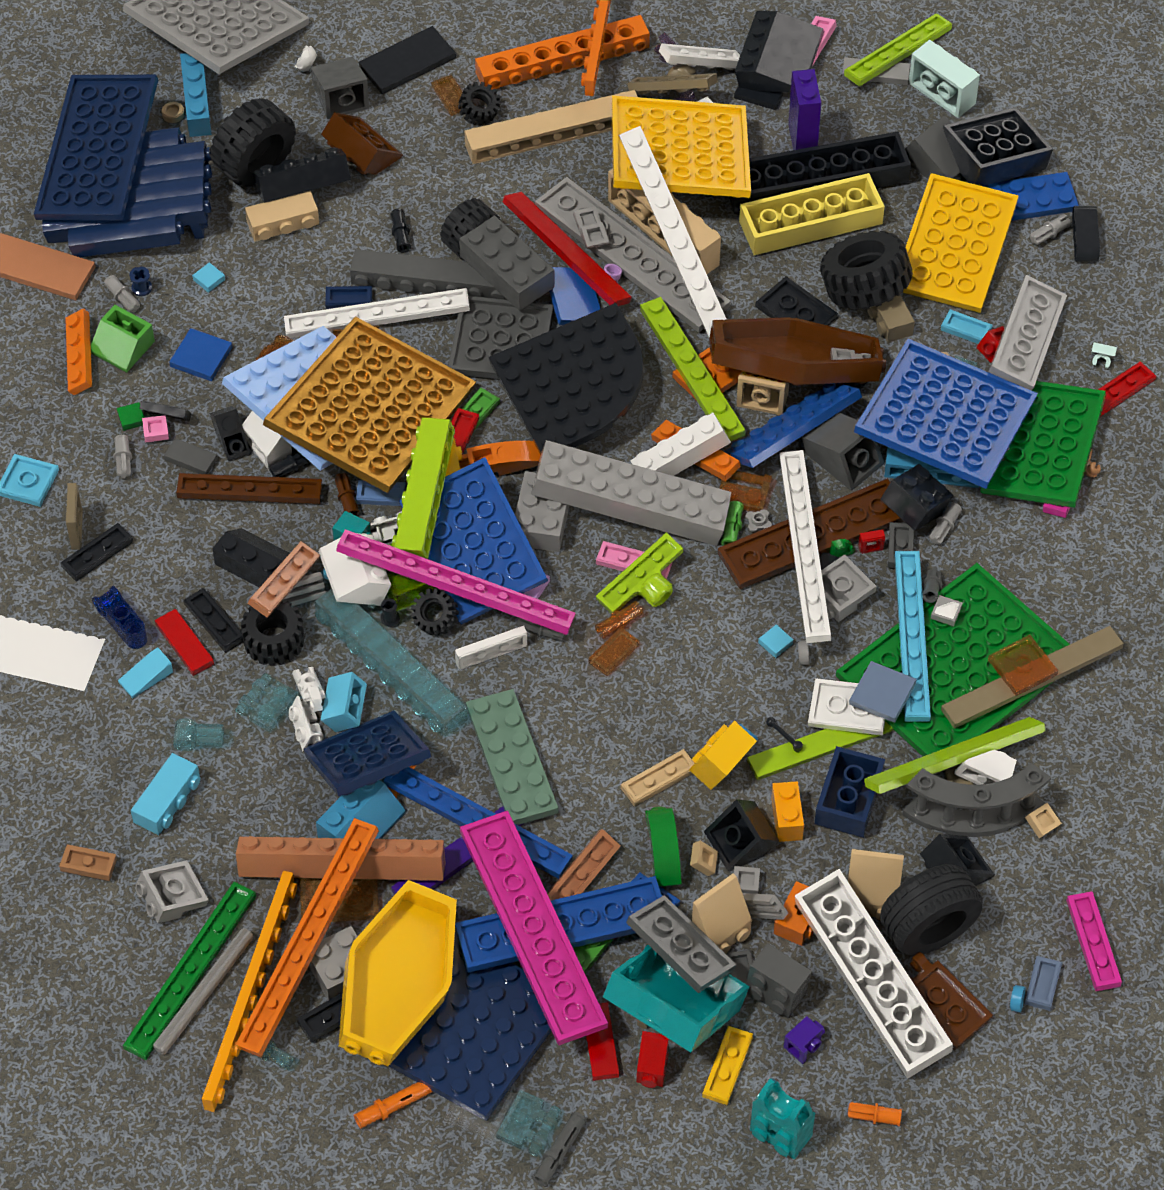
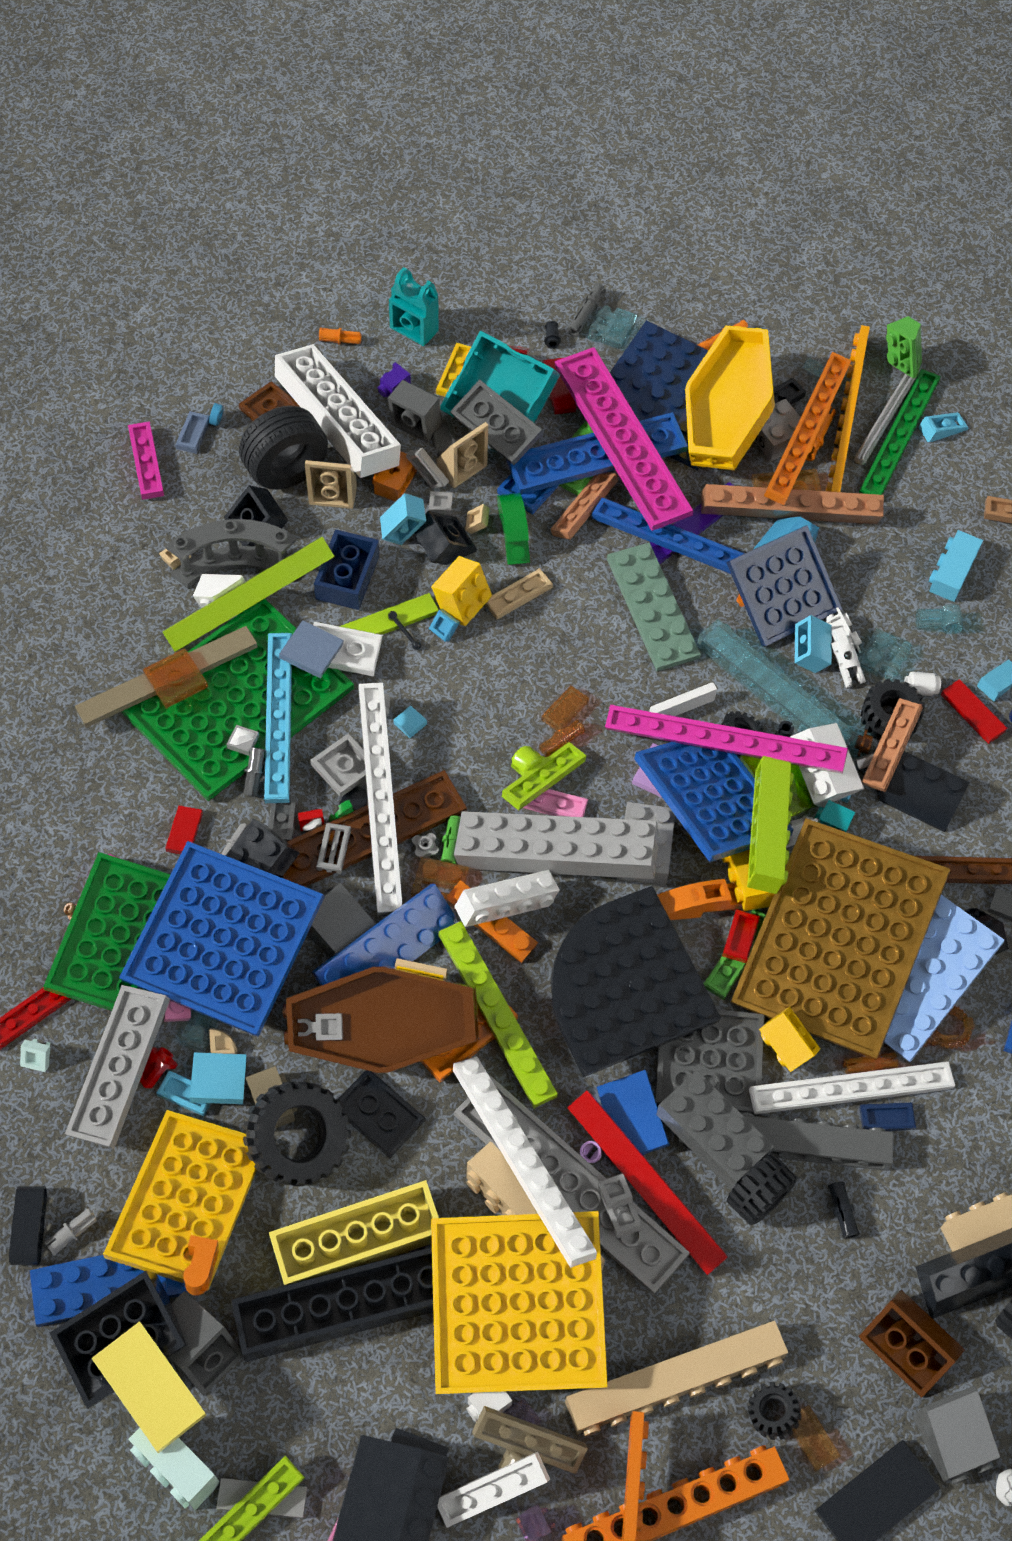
camera: 175 degrees right, 5 degrees up
(135, 979) = (941, 426): none -> medium azure slope
(162, 1061) = (905, 345): none -> bright green slope
(170, 891) = (931, 485): light grey plate -> none
(214, 620) = (951, 735): black tile -> none
(233, 665) = (925, 683): none -> white brick
(307, 603) = (863, 743): none -> reddish brown plate
(428, 340) = (789, 1039): none -> yellow brick
(605, 1111) = (552, 337): none -> black pin
(787, 811) = (403, 555): light orange brick -> none
(789, 841) = (402, 519): none -> medium azure brick
(804, 109) = (360, 1367): dark purple brick -> none
(845, 524) = (330, 866): none -> light grey tile
(938, 173) = (200, 1271): none -> orange leg
(940, 329) = (218, 1078): none -> medium azure tile
(968, 99) = (149, 1387): none -> light yellow tile
(996, 541) = (183, 828): none -> red tile

